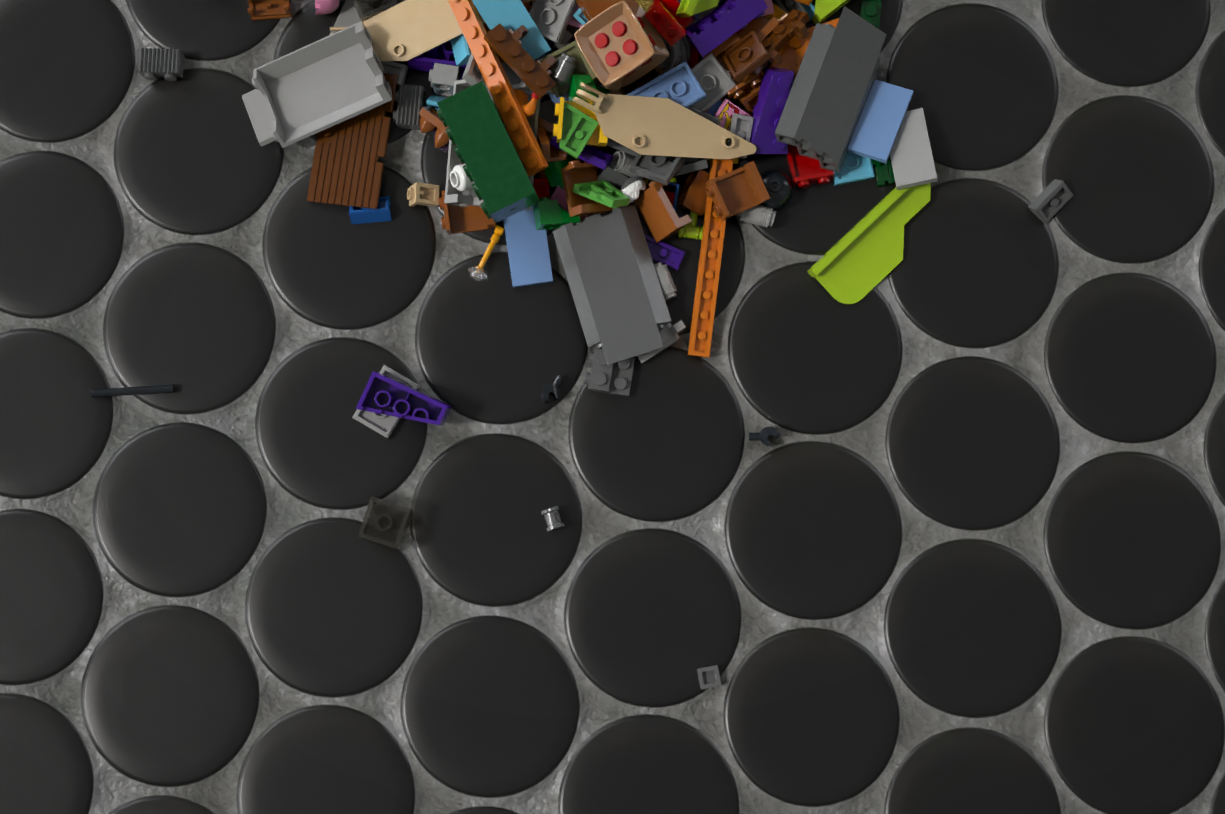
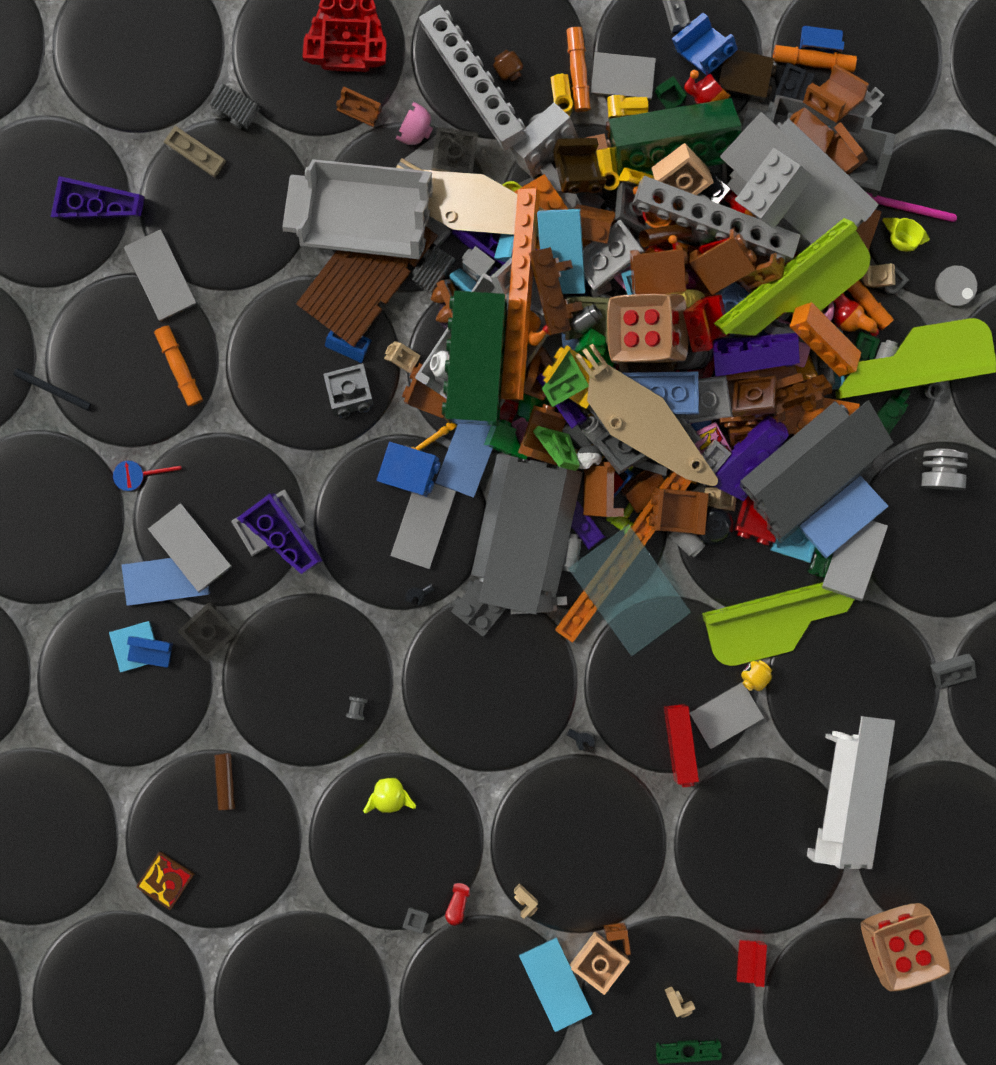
camera: 15 degrees right, 5 degrees up
(80, 208) = (90, 200): none -> dark purple wedge
(147, 120) = (195, 151): none -> dark tan tile
(174, 241) = (160, 275): none -> light grey tile
(233, 309) = (178, 366): none -> orange piece
(242, 428) = (129, 474): none -> blue piece
(322, 500) = (156, 582): none -> medium blue tile
(327, 574) = (119, 641): none -> medium azure tile
(329, 460) = (189, 548): none -> light grey tile
(342, 570) = (149, 651): none -> blue panel
(393, 248) = (348, 390): none -> dark grey plate
(467, 766) = (165, 880): none -> tile
(471, 648) = (224, 781): none -> reddish brown piece
(483, 286) = (408, 469): none -> blue panel
(521, 327) = (423, 526): none -> light grey tile
(624, 580) = (389, 797): none -> neon yellow piece
(733, 284) = (629, 590): none -> clear light blue piece
(739, 646) = (456, 908): none -> red piece
(768, 162) = (720, 499): none -> tan bracket
(792, 603) = (527, 898): none -> tan bracket
(853, 391) = (681, 745): none -> red brick
(864, 664) = (555, 984): none -> medium azure tile
(878, 346) = (726, 715): none -> light grey tile
(884, 297) = (756, 675): none -> yellow head
(892, 584) = (618, 932): none -> dark orange panel
(892, 621) = (599, 963): none -> light nougat brick
(942, 32) = (944, 470): none -> light grey wheel
(977, 619) = (675, 1000): none -> tan bracket
(1002, 666) = (702, 1051): none -> dark green piece
(1024, 548) = (751, 962): none -> red panel
(1029, 349) = (855, 796): none -> white panel
(1148, 455) = (905, 947): none -> medium nougat piece

